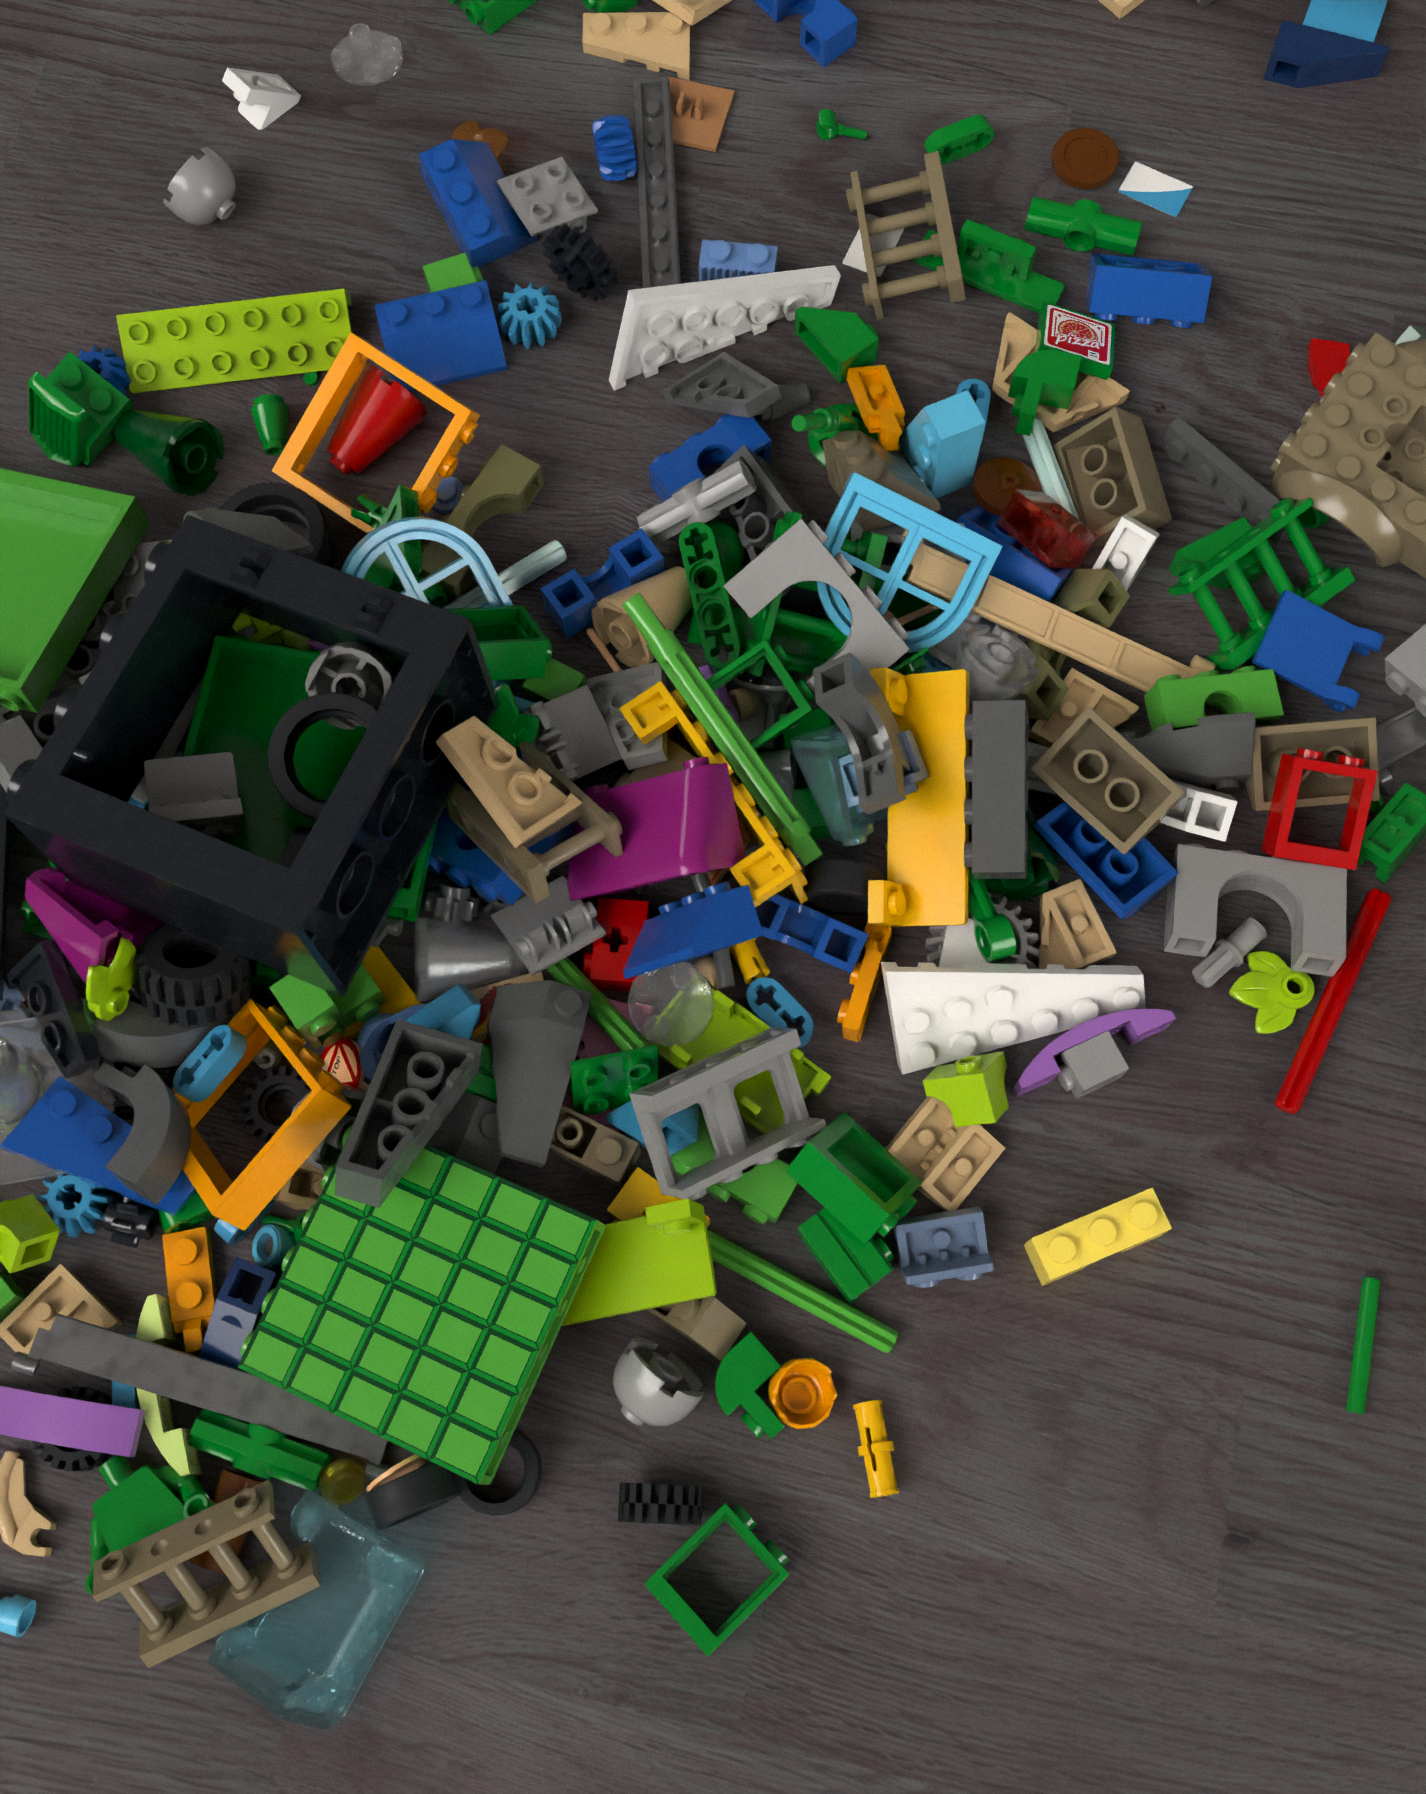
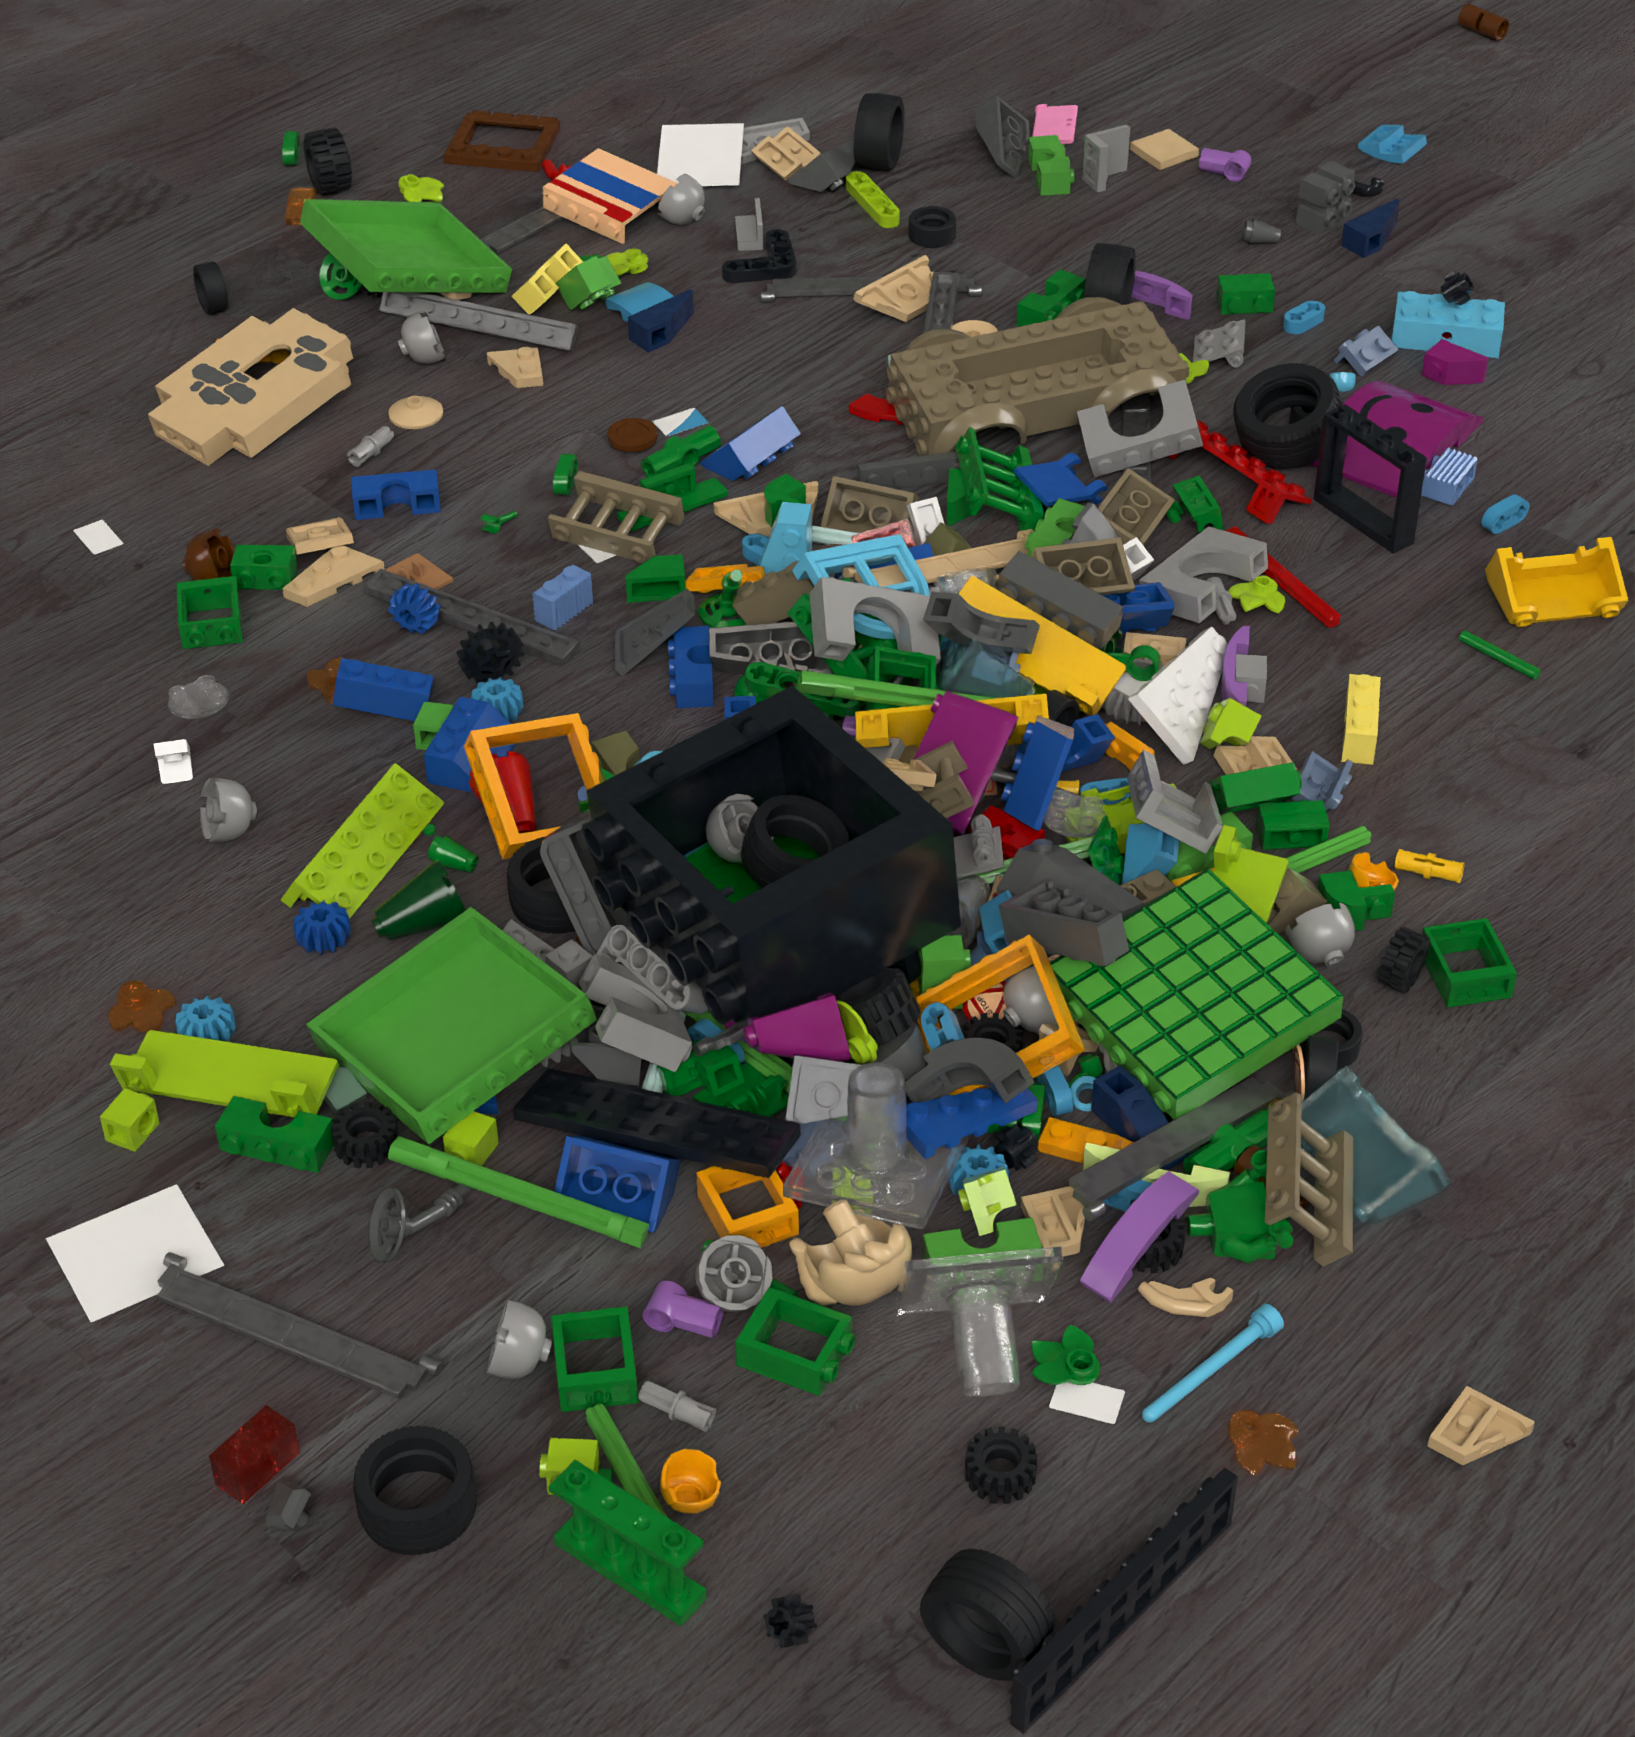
camera: 60 degrees left, 30 degrees down
(73, 412) = (347, 940): green piece -> none
(548, 197) = (419, 651): light grey hinge -> none
(697, 502) = (728, 665): light grey piece -> none
(707, 315) = (586, 618): white wing -> none
(1077, 334) = (753, 485): tile -> none
(1284, 801) = (1152, 526): red window -> none

